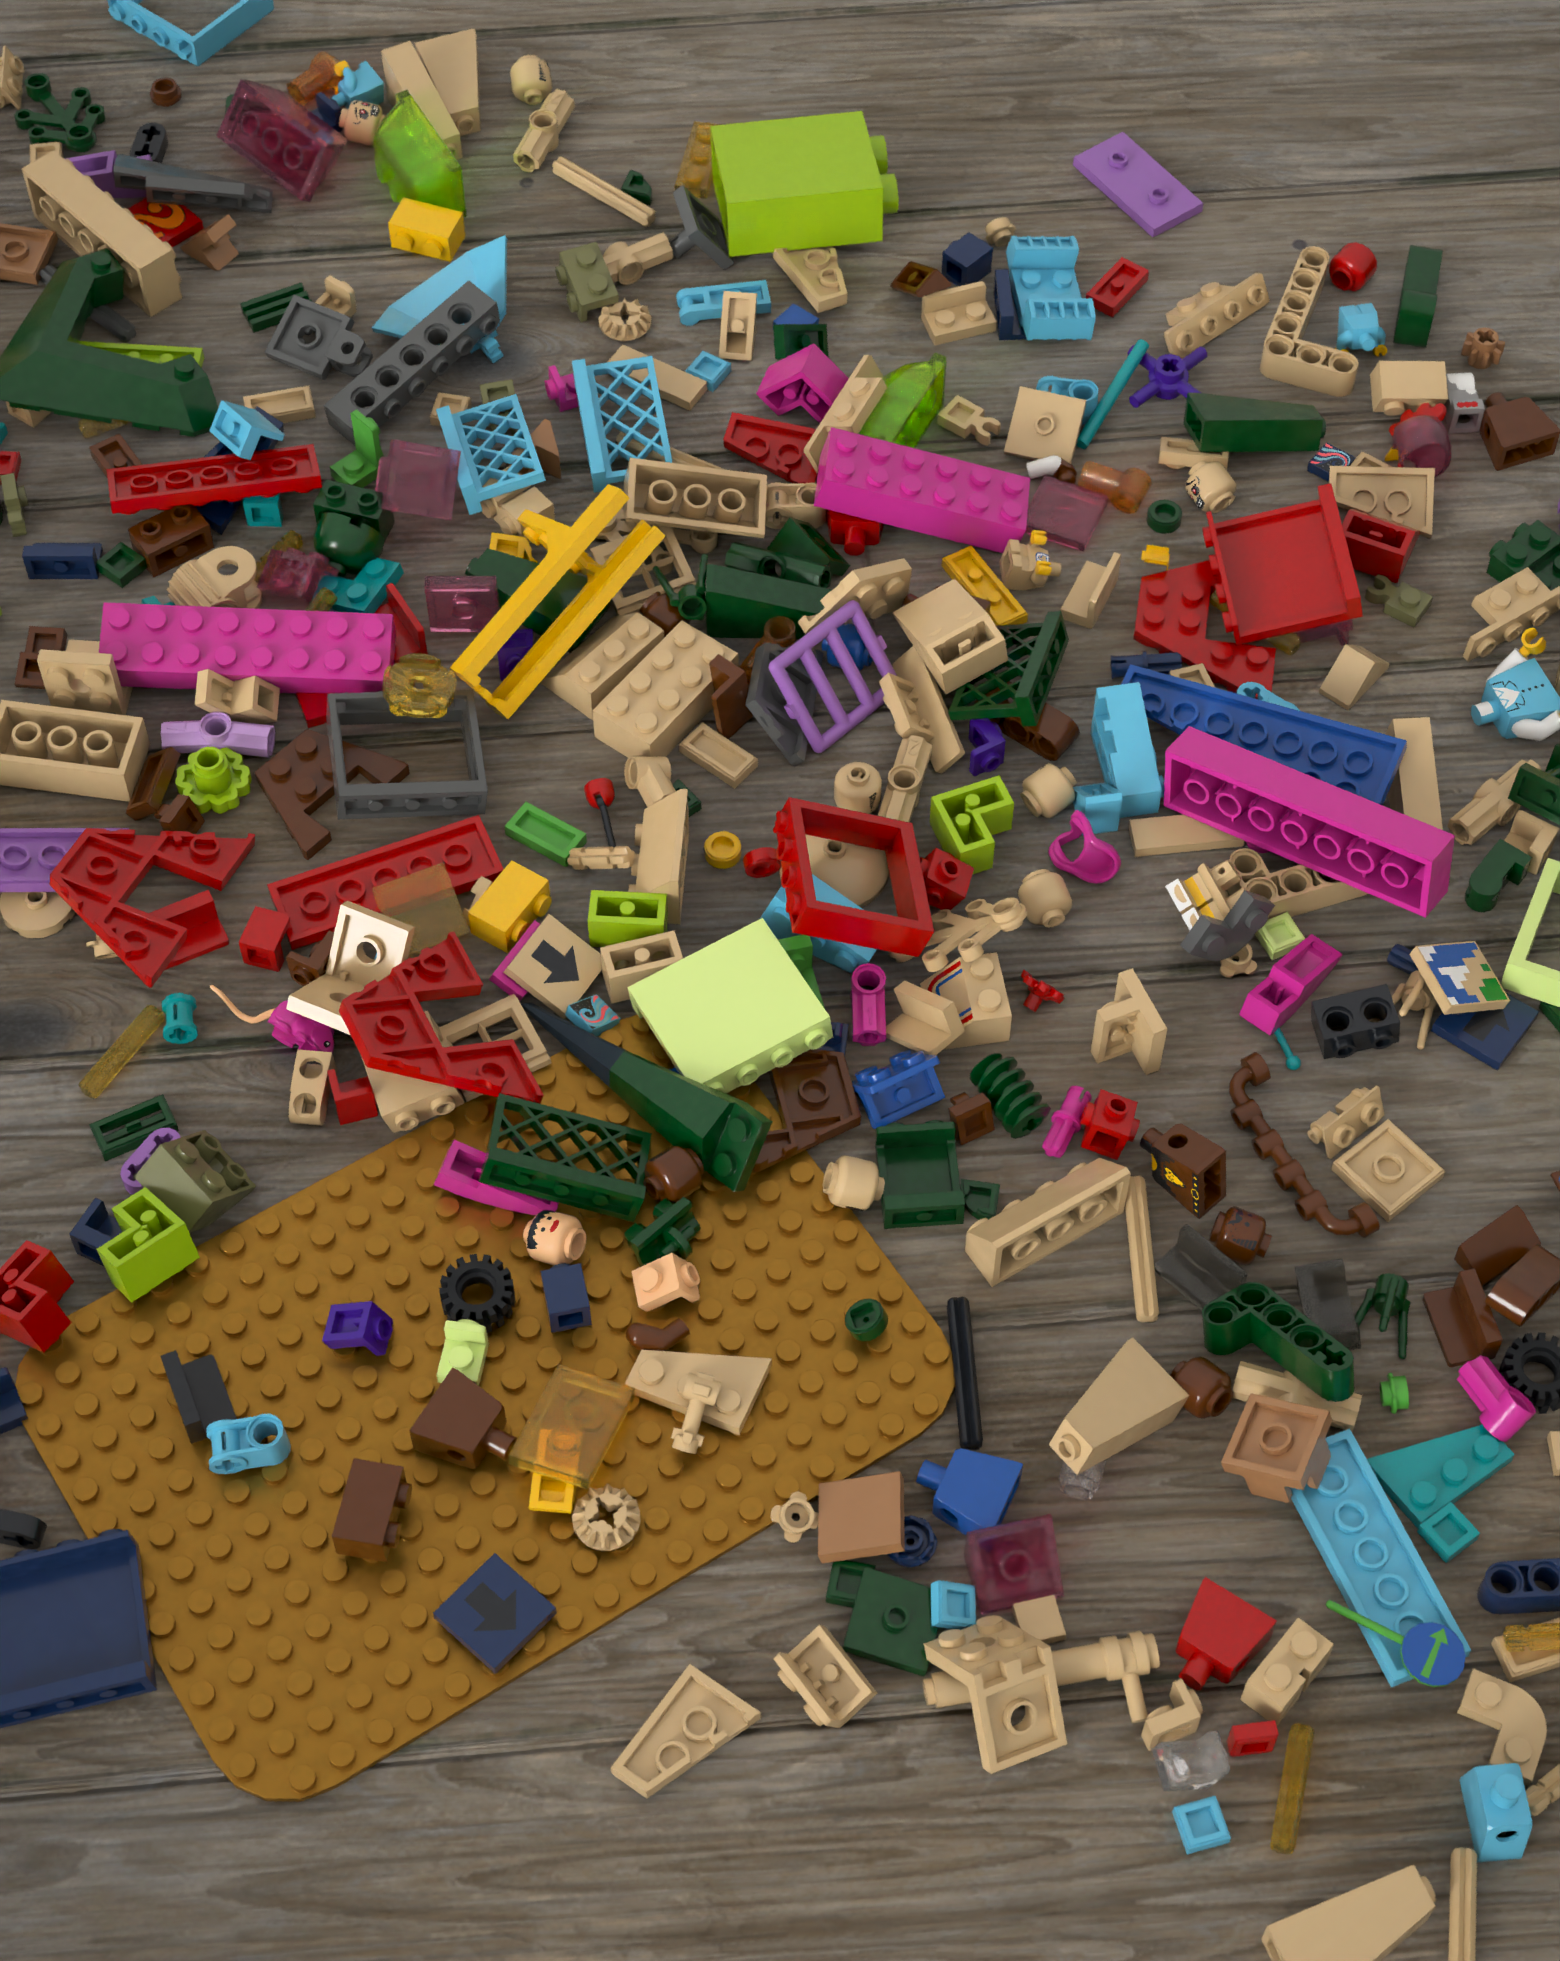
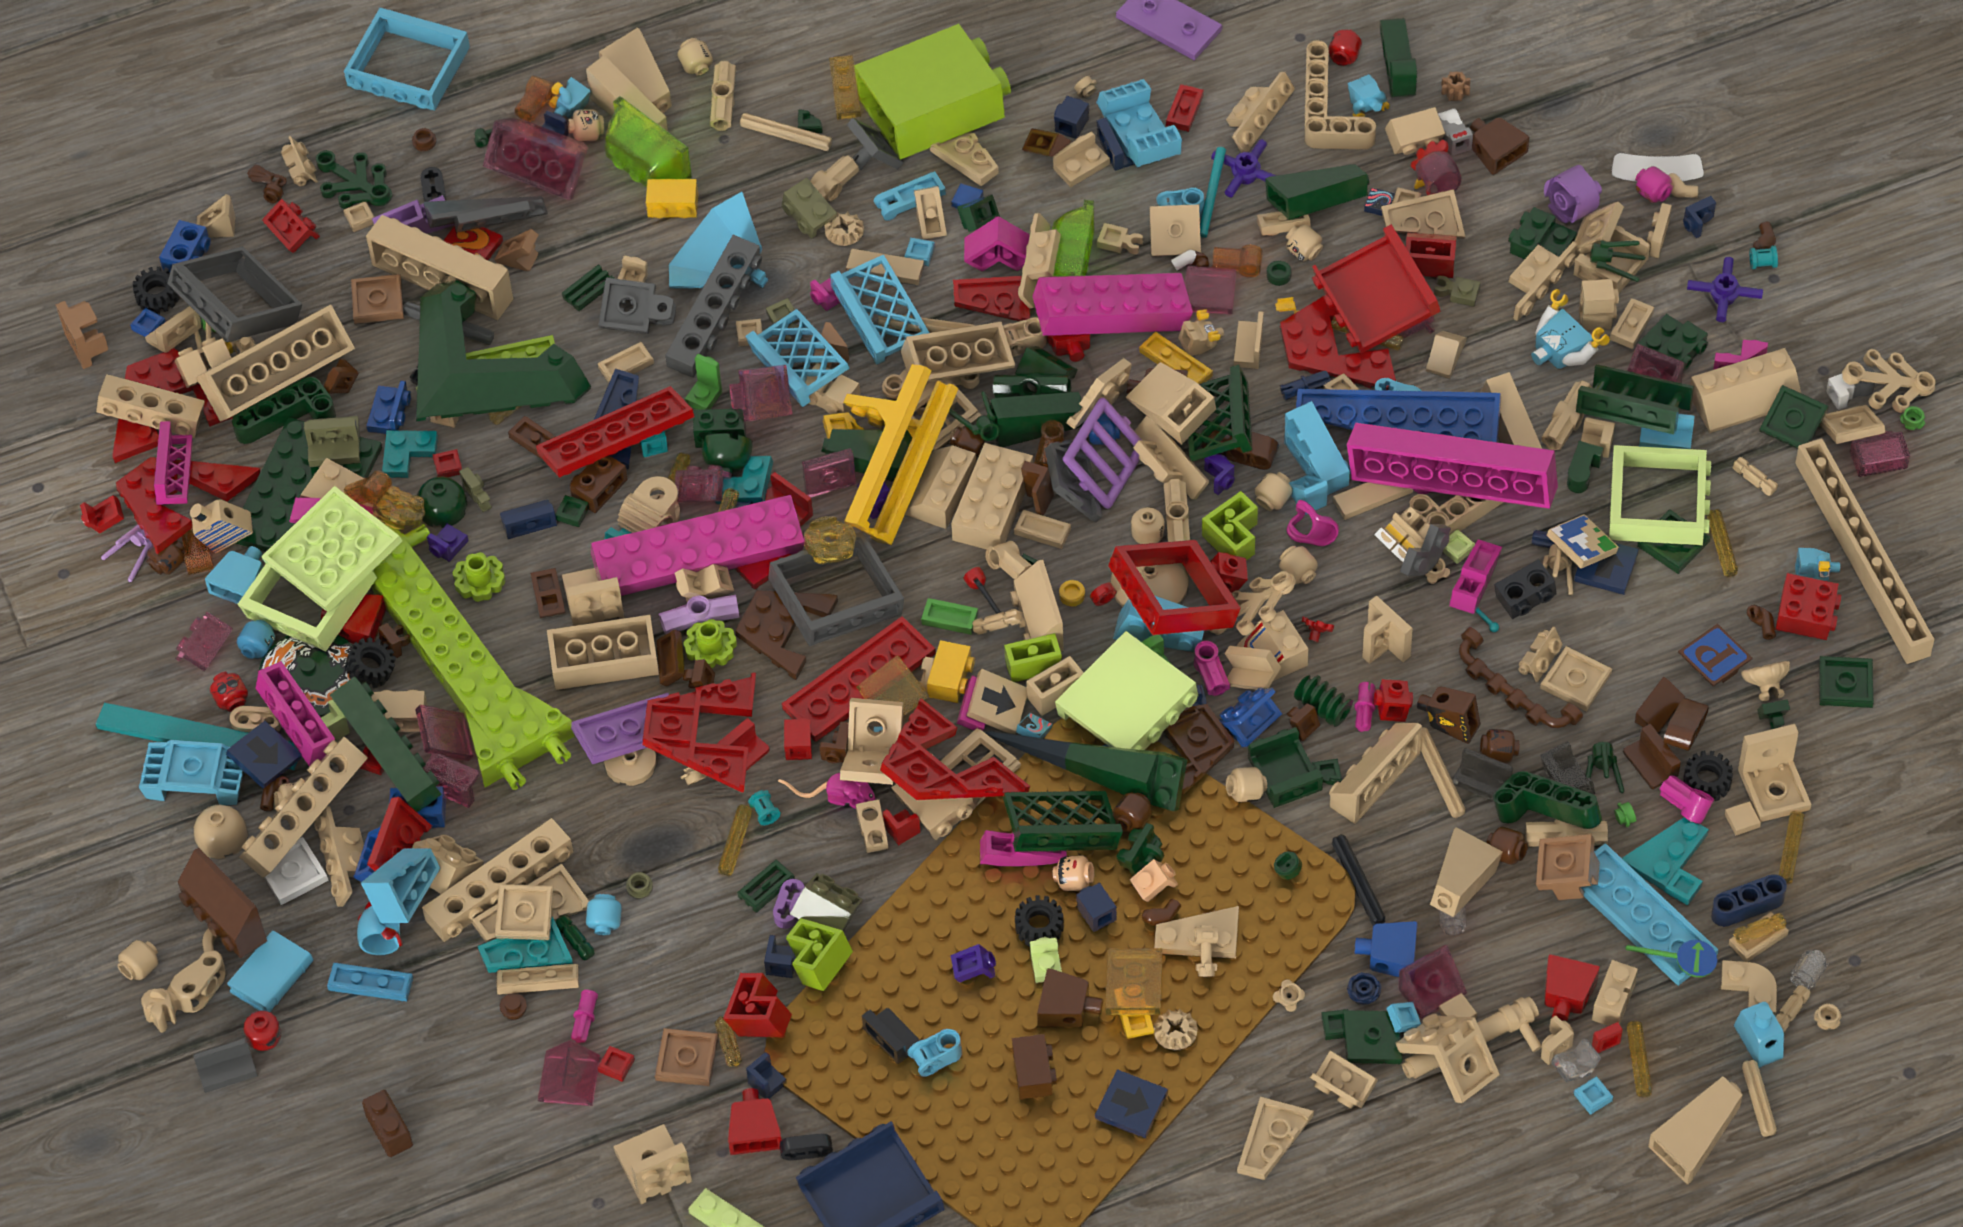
camera: 15 degrees left, 0 degrees up
(241, 428) = (618, 389): medium azure panel -> none
(861, 1517) = (1330, 982): medium nougat tile -> none

